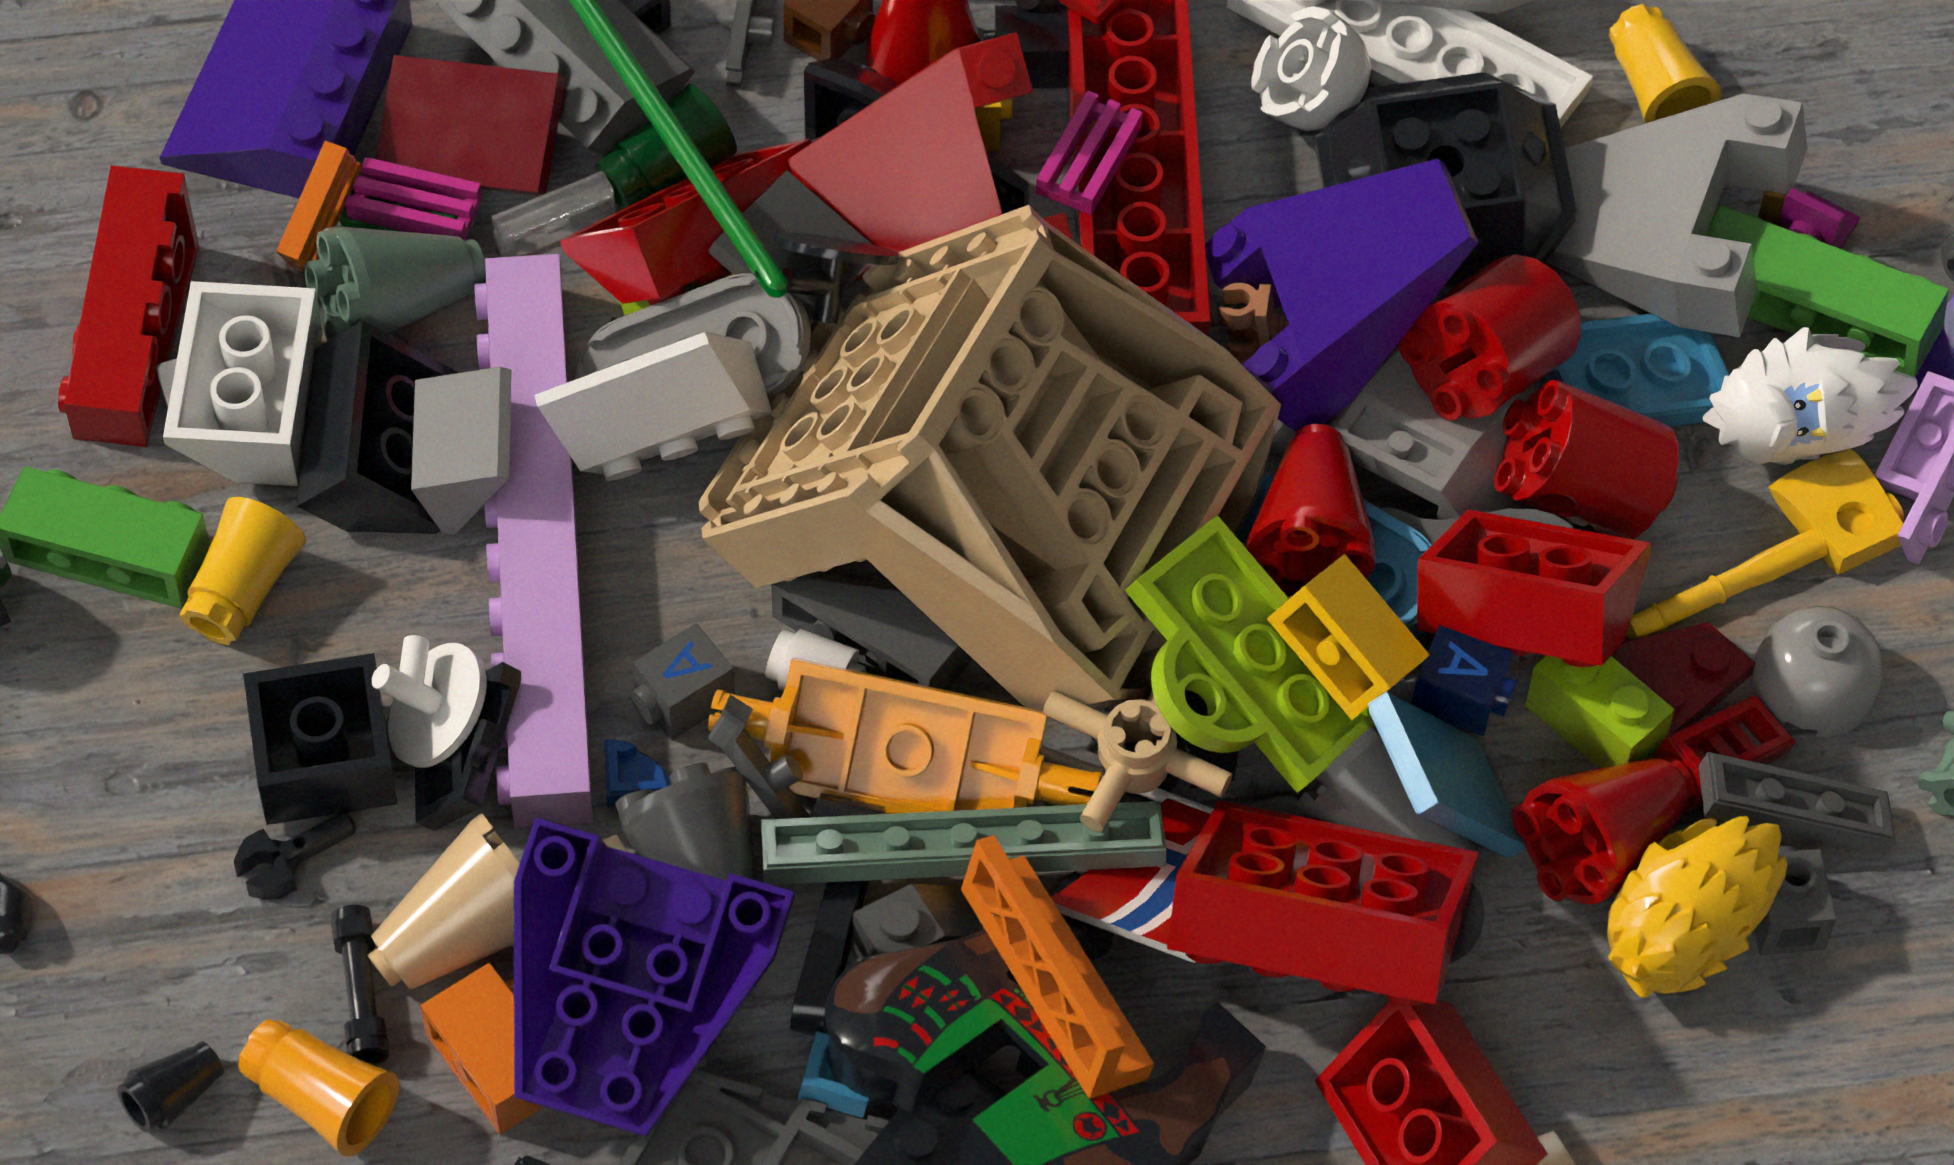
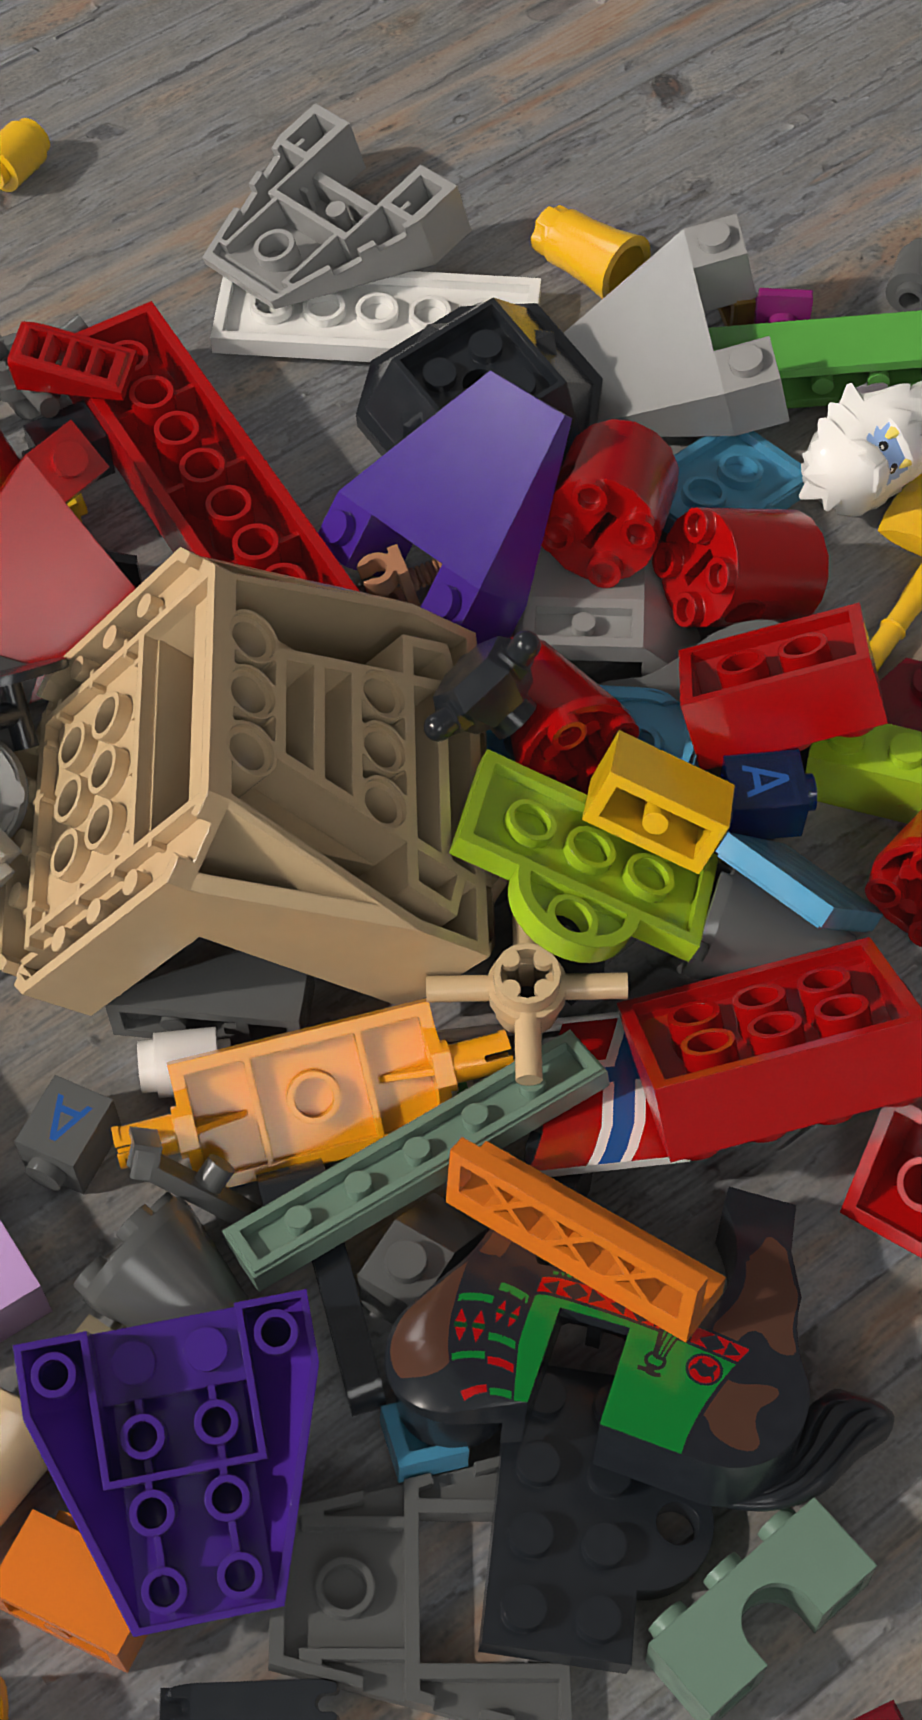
camera: 25 degrees left, 0 degrees up
(630, 771) = (66, 1246): blue tile -> none
(1106, 116) = (178, 469): dark pink tile -> none
(1241, 462) = (486, 689): none -> black rock
(1311, 70) = (318, 365): white cylinder -> none

